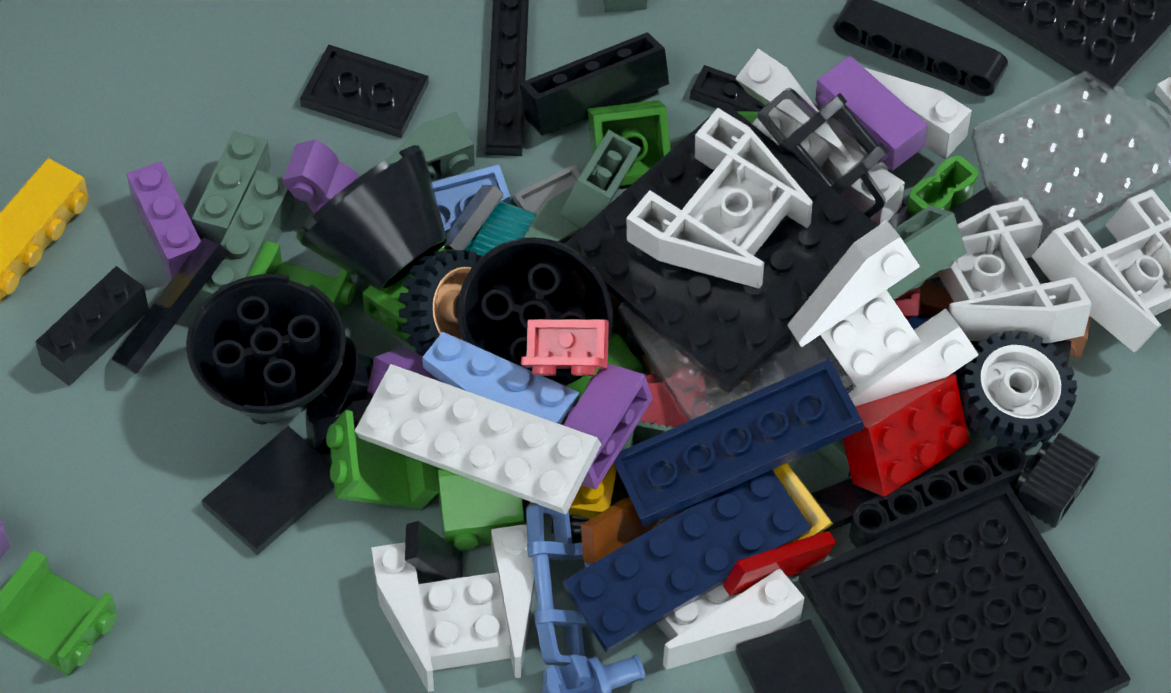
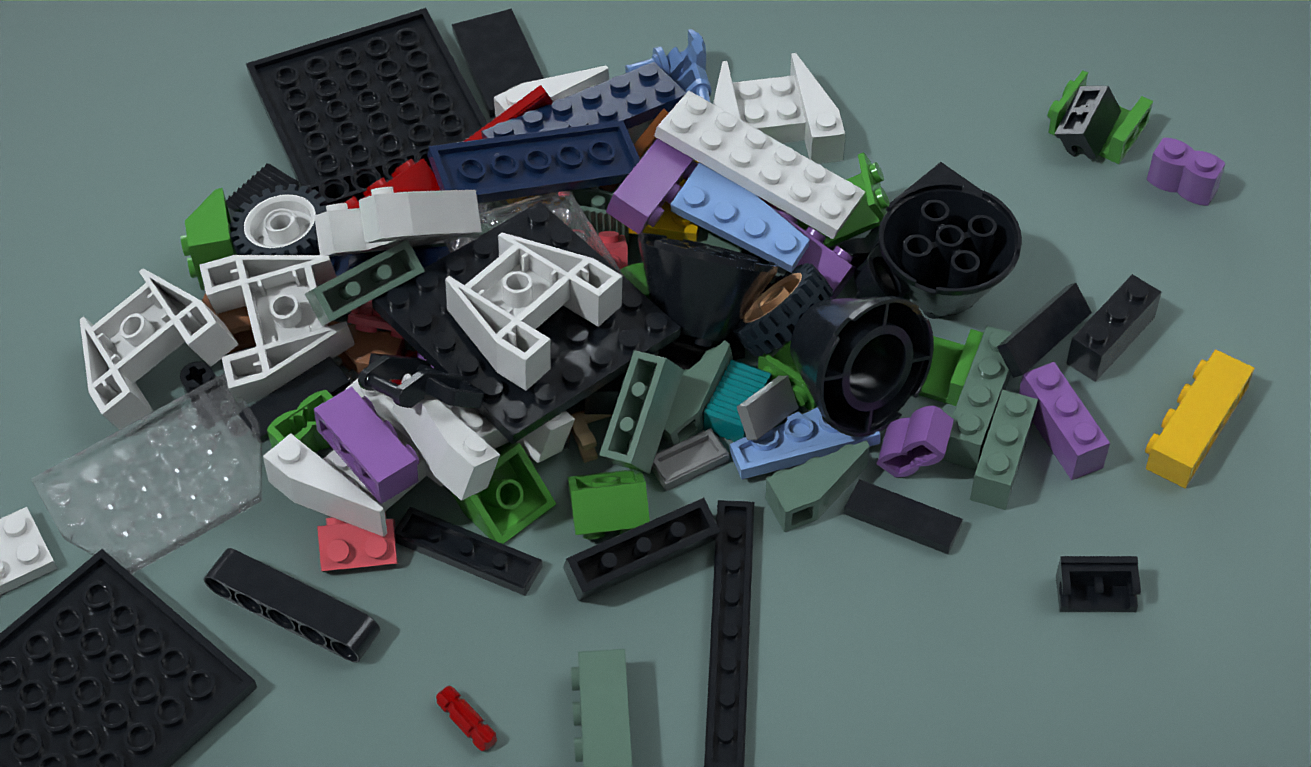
camera: 175 degrees left, 5 degrees down
(69, 595) = (1089, 120): none -> black hinge
(160, 76) = (1098, 583): none -> black hinge
(347, 141) = (903, 516): none -> black tile
(364, 91) = (881, 571): black tile -> none
(432, 553) = (799, 128): black tile -> none
(566, 345) = (682, 213): coral bracket -> none
(1099, 393) = (208, 234): none -> bright green slope

